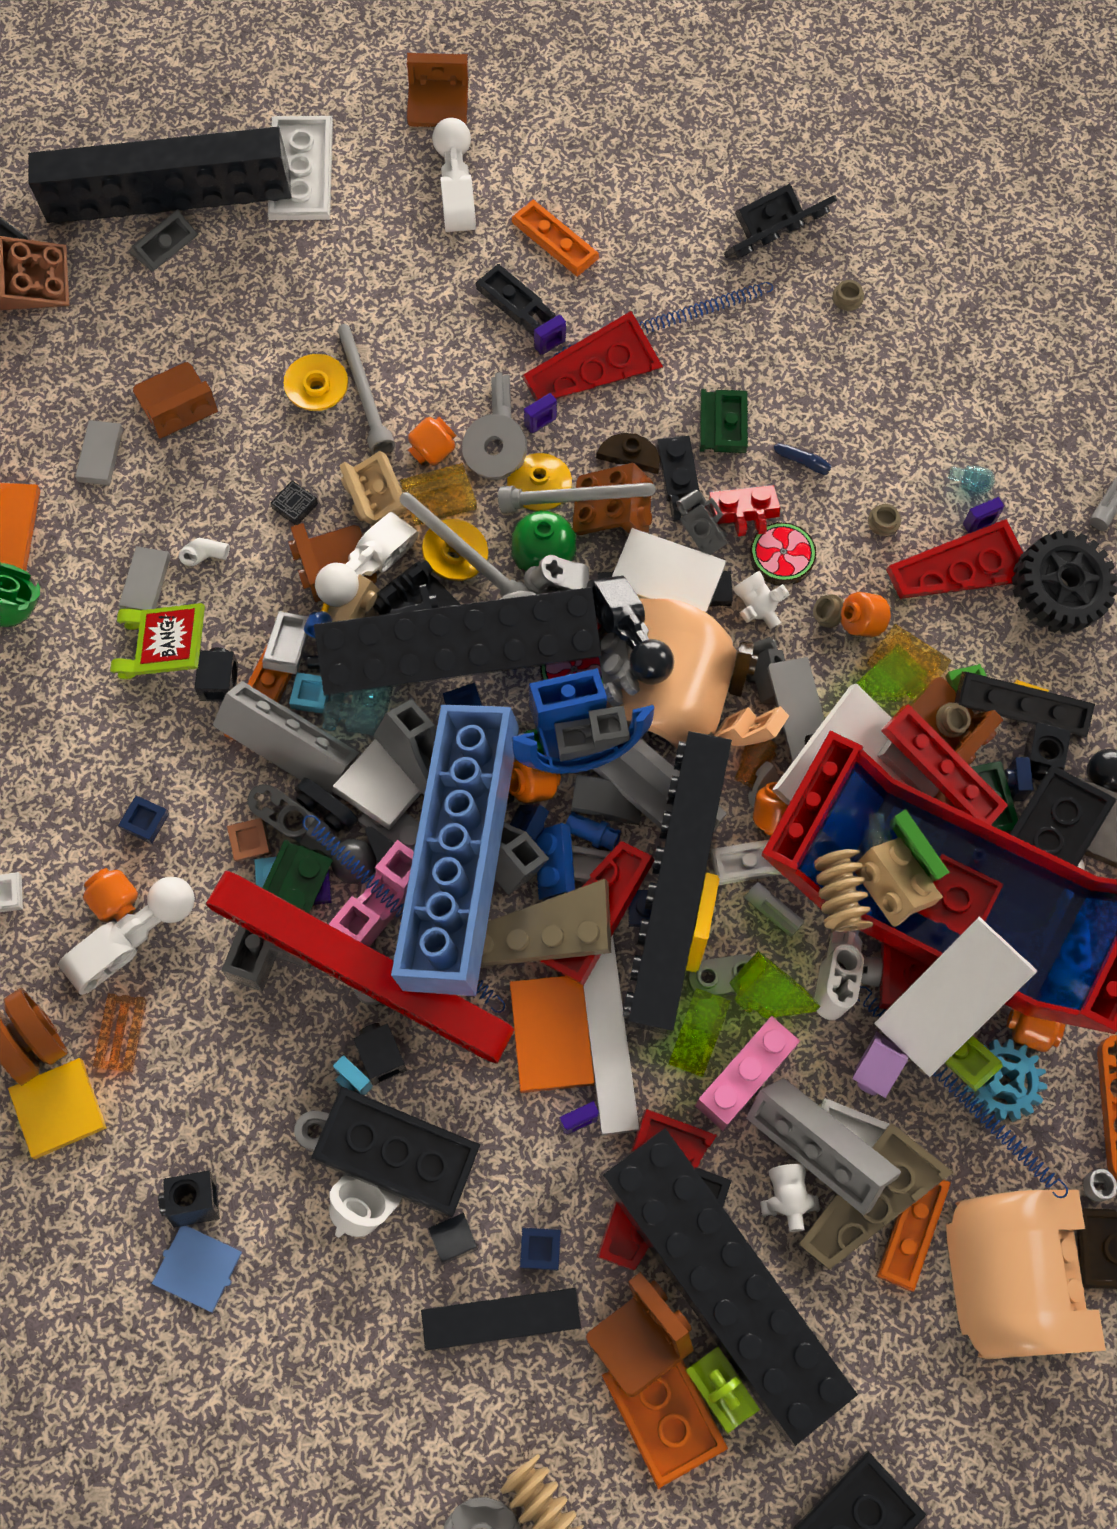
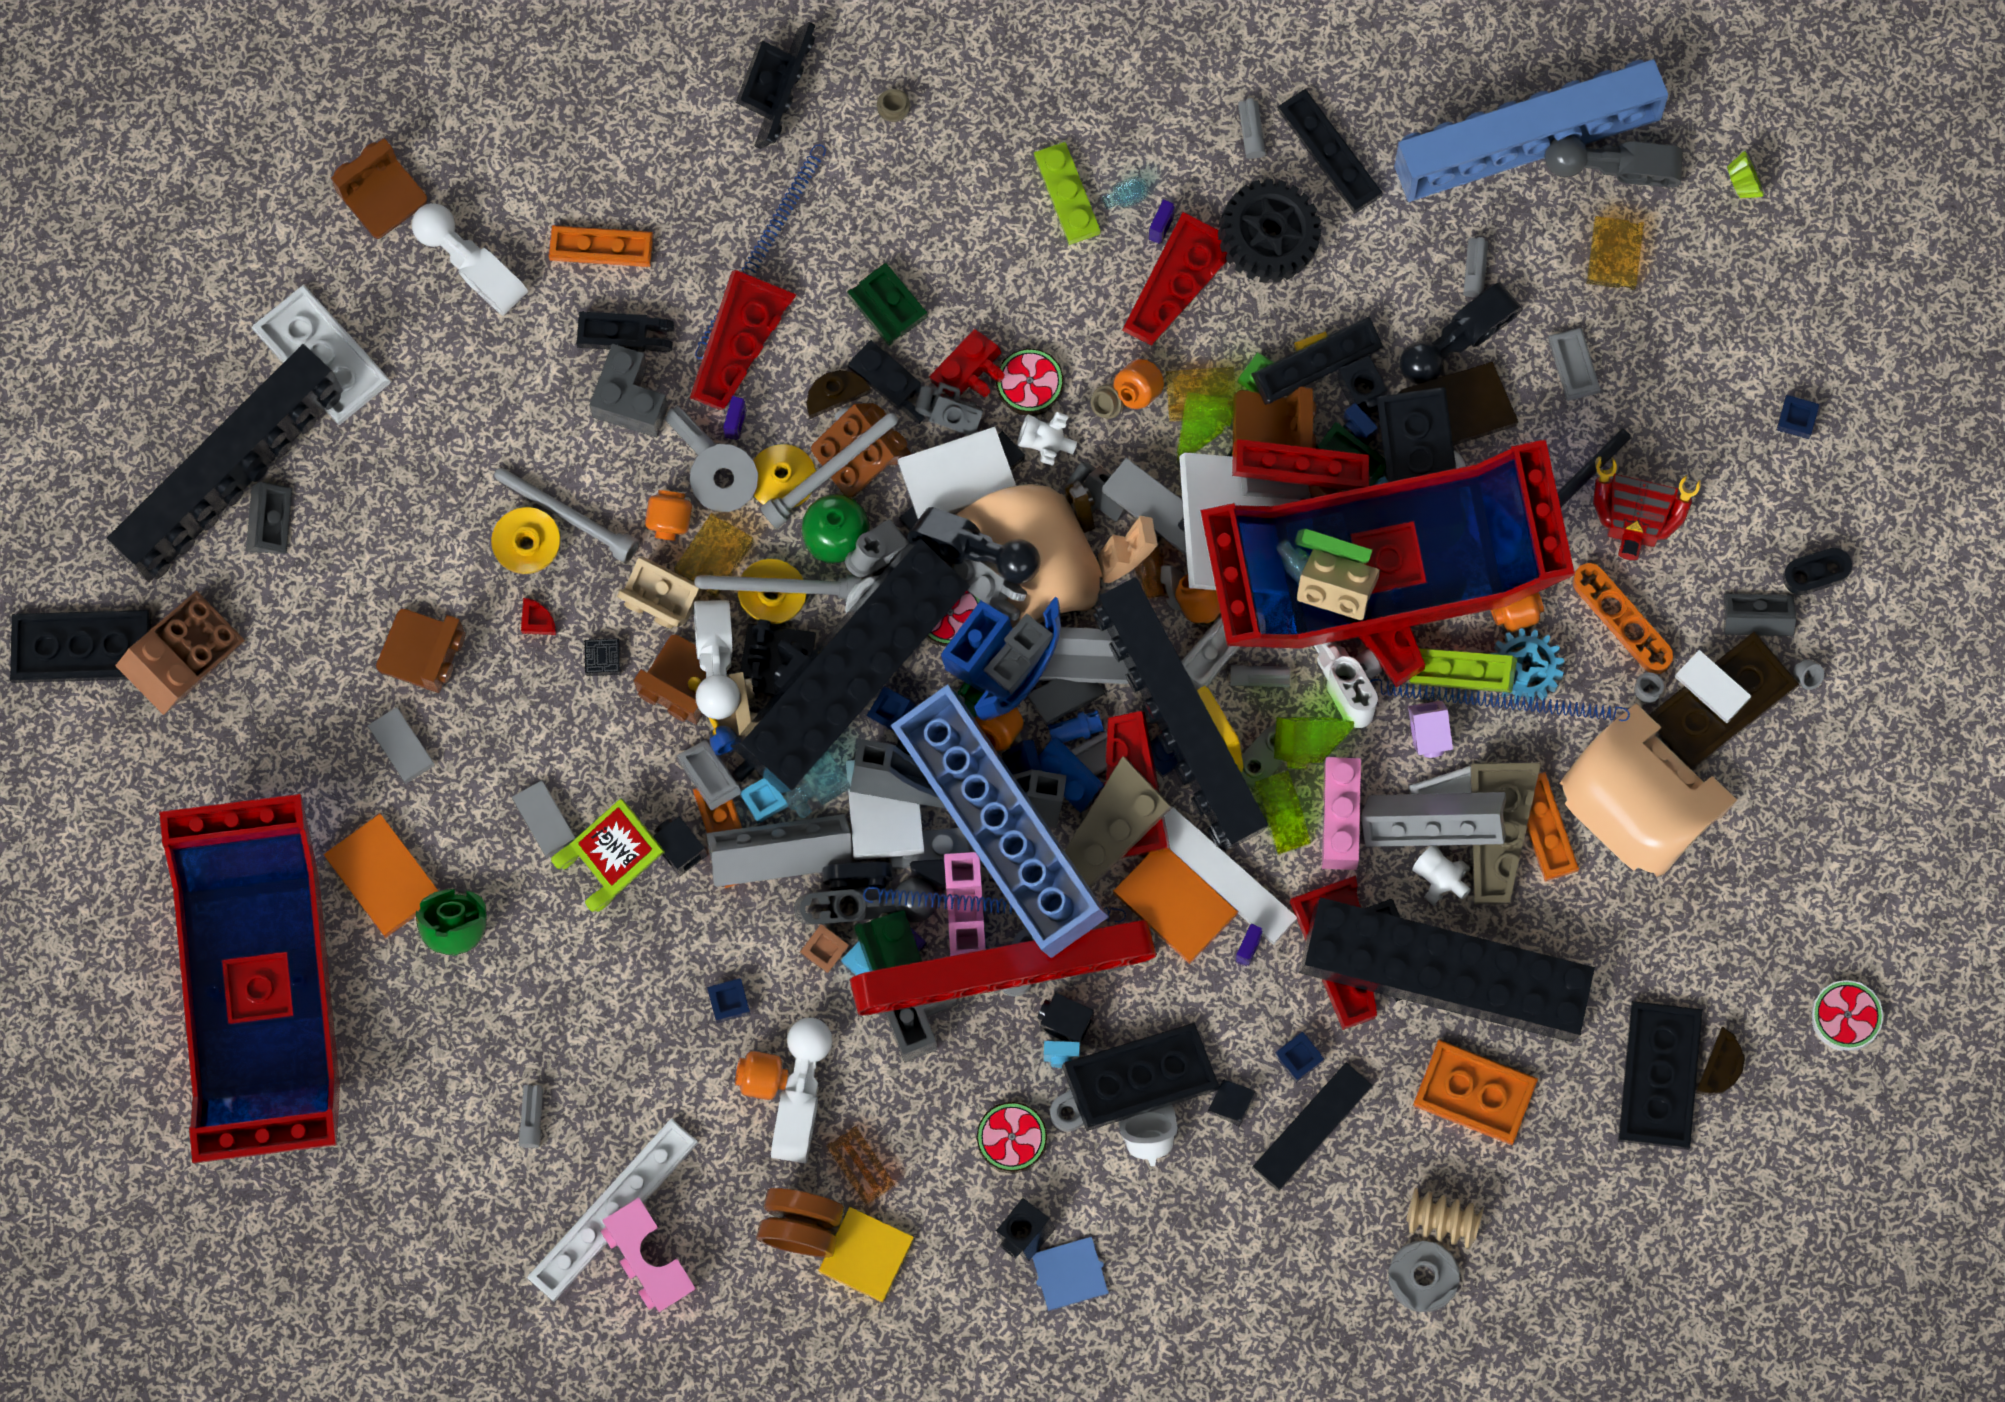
camera: 35 degrees left, 5 degrees up
(201, 549) = (564, 757): white arm -> none
(254, 1112) = (1011, 1137): none -> tile
(274, 442) = (536, 619): none -> red tile
(475, 338) = (622, 400): none -> dark grey brick
(550, 334) = (680, 341): dark purple tile -> none
(641, 1338) = (1419, 1053): dark orange bracket -> none
(722, 1389) = (1502, 1042): lime hips -> none
(810, 460) = (984, 282): dark blue piece -> none
(841, 891) = (1305, 625): tan piece -> none
(884, 520) = (1086, 288): dark tan plate -> none
(926, 446) = (1067, 193): none -> lime plate
(952, 720) = (1274, 418): dark tan plate -> none
(955, 996) = (1445, 636): white tile -> none

